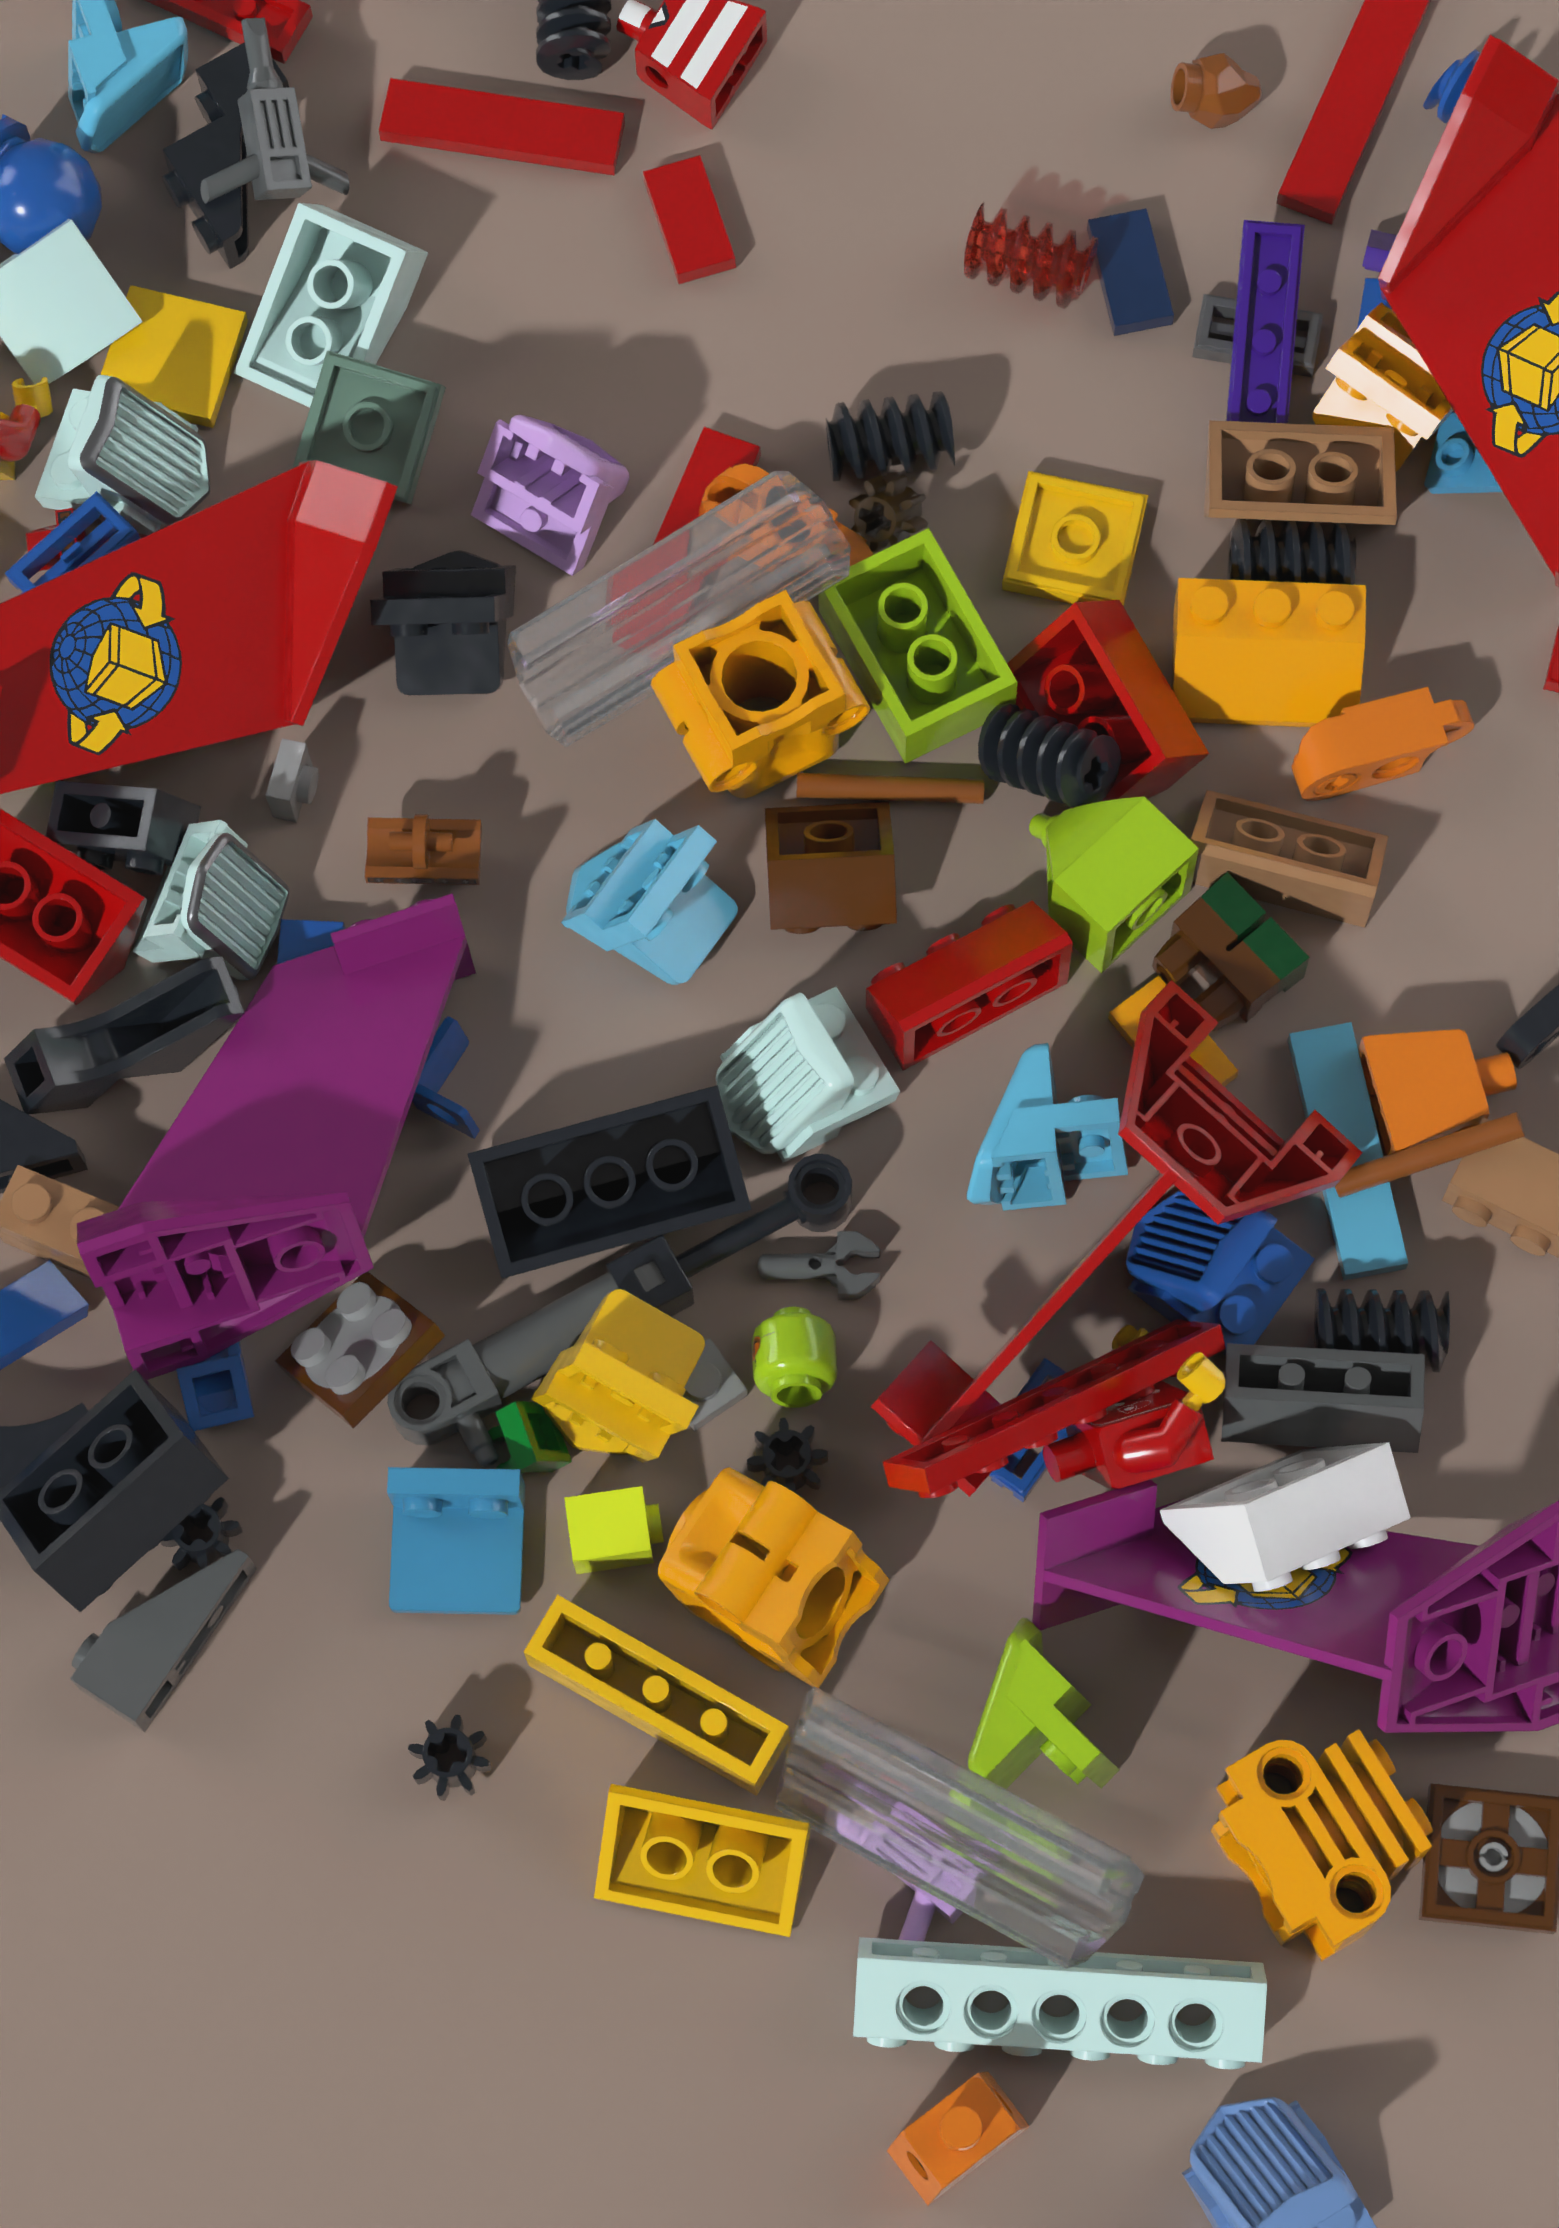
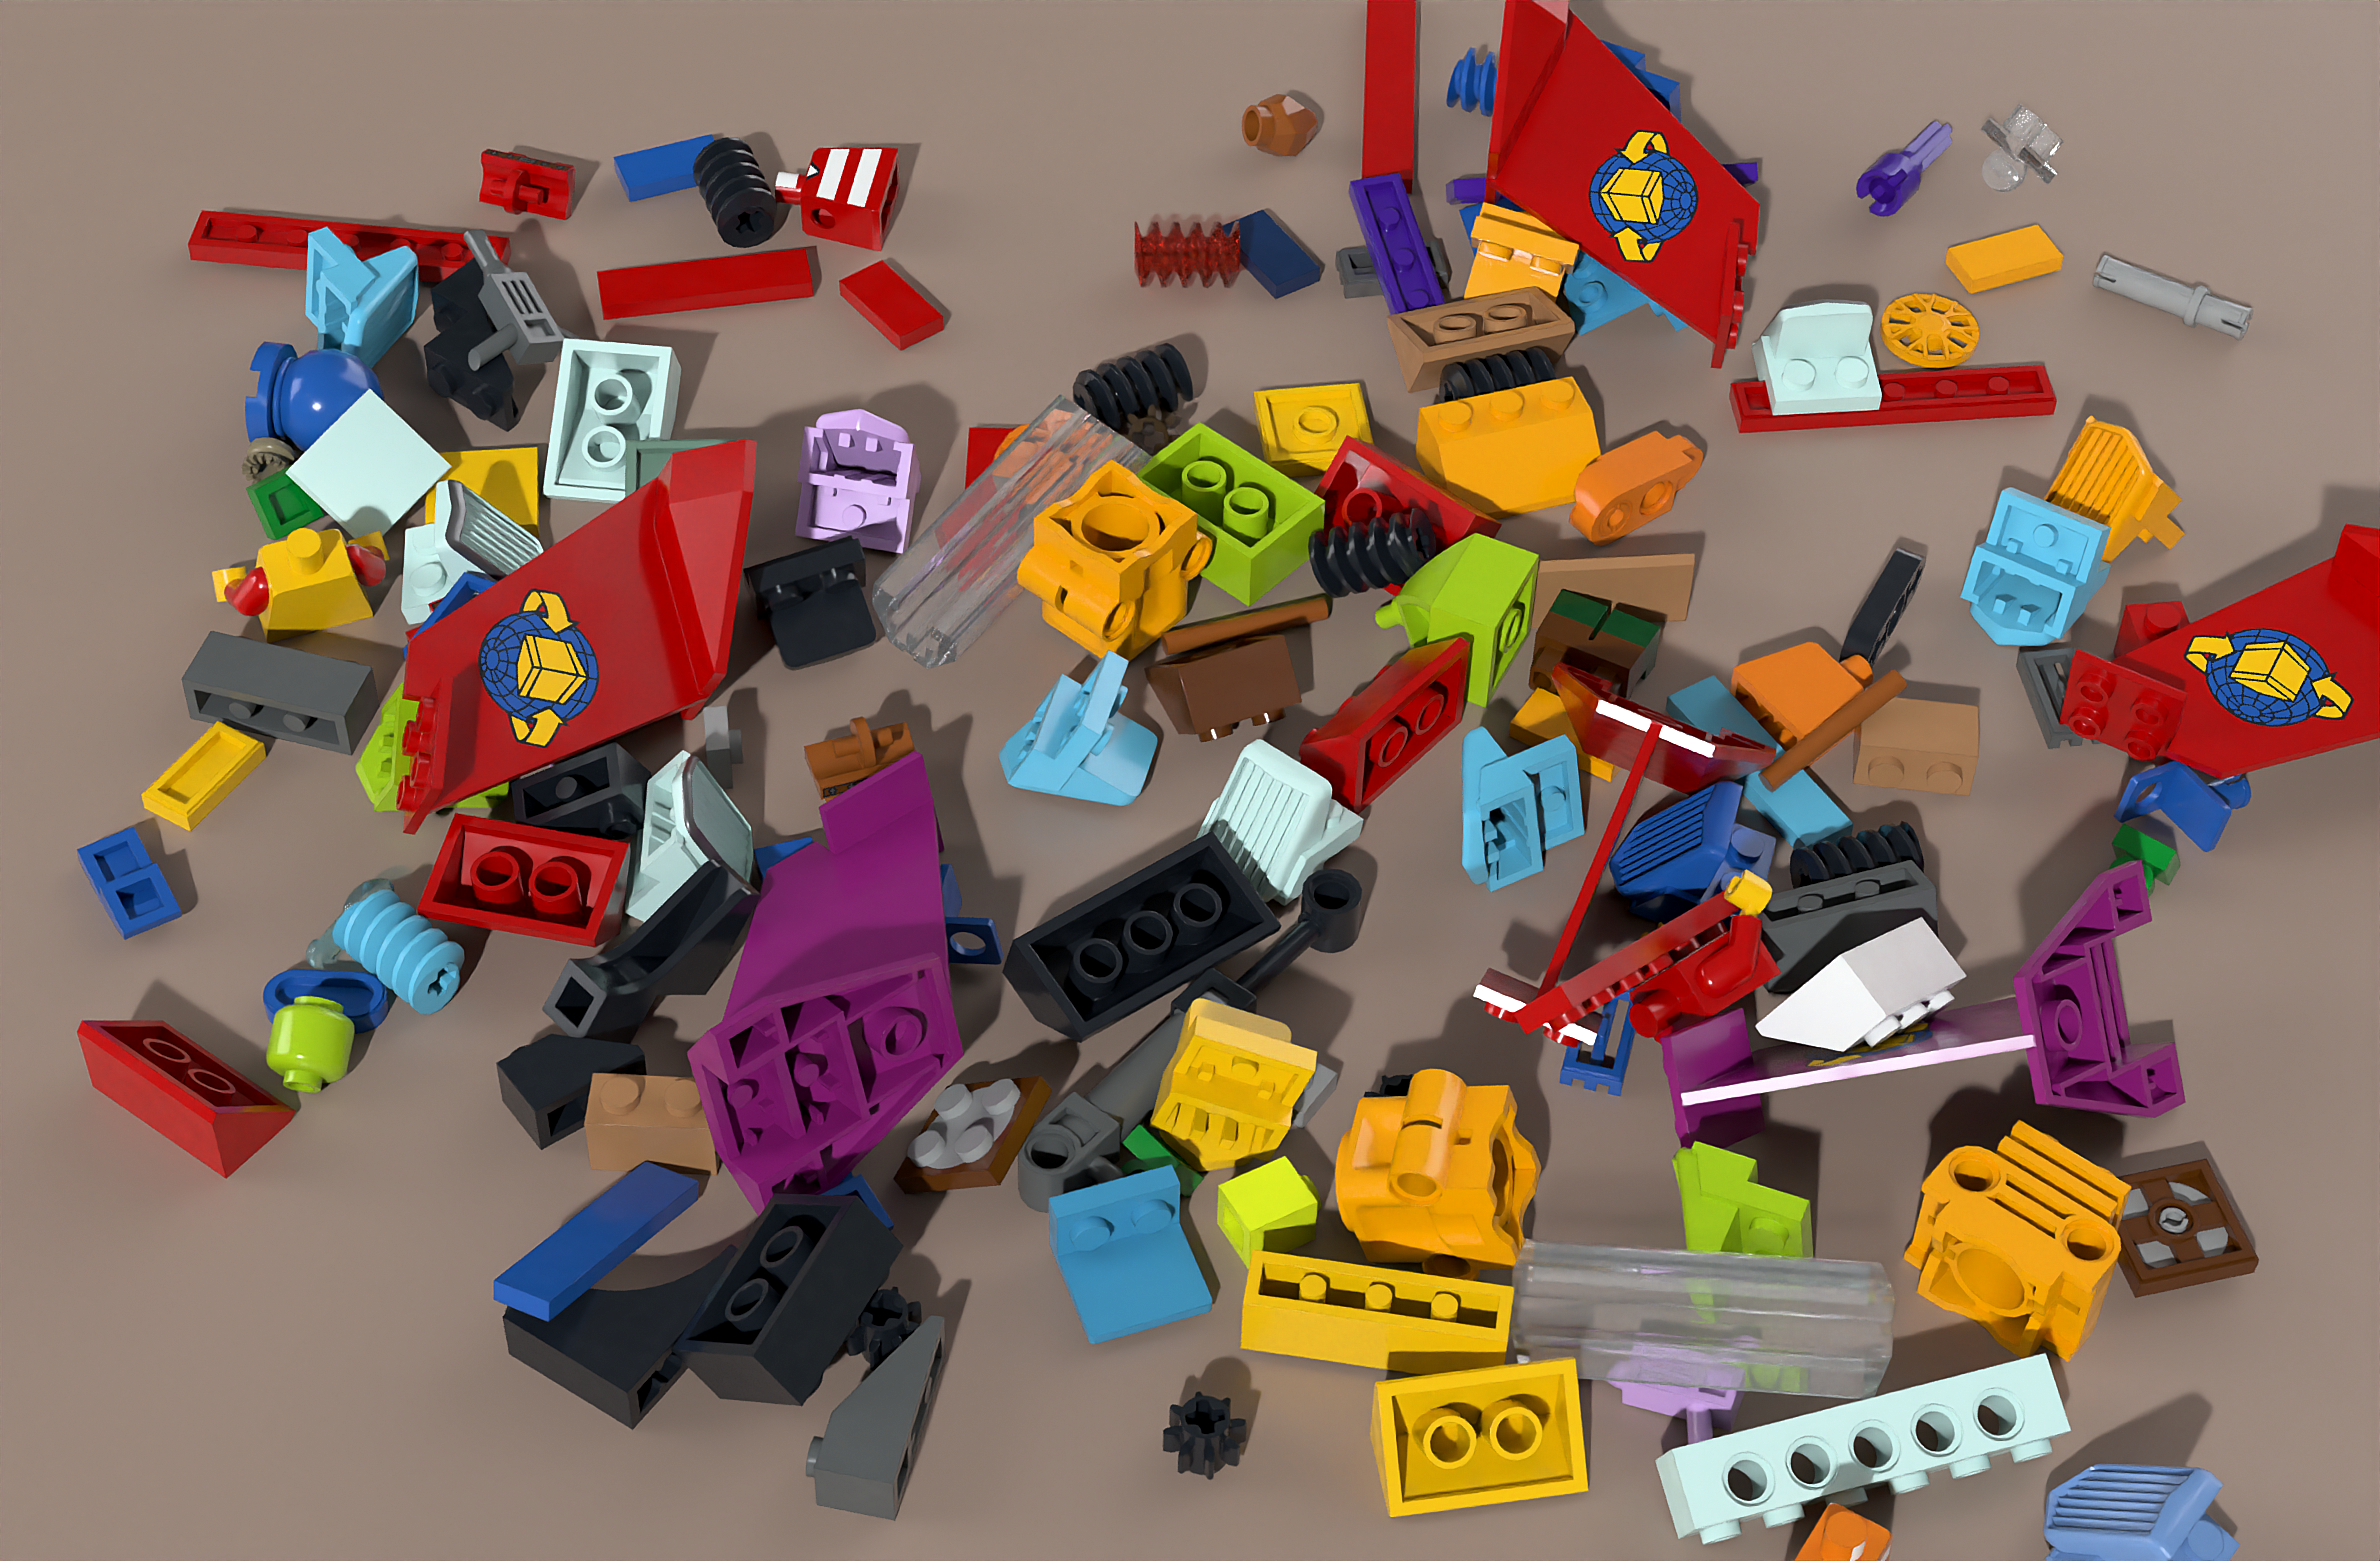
camera: 25 degrees left, 25 degrees down
(794, 1357) = (1368, 1033): lime head -> none
(827, 1265) = (1364, 967): dark grey bar -> none

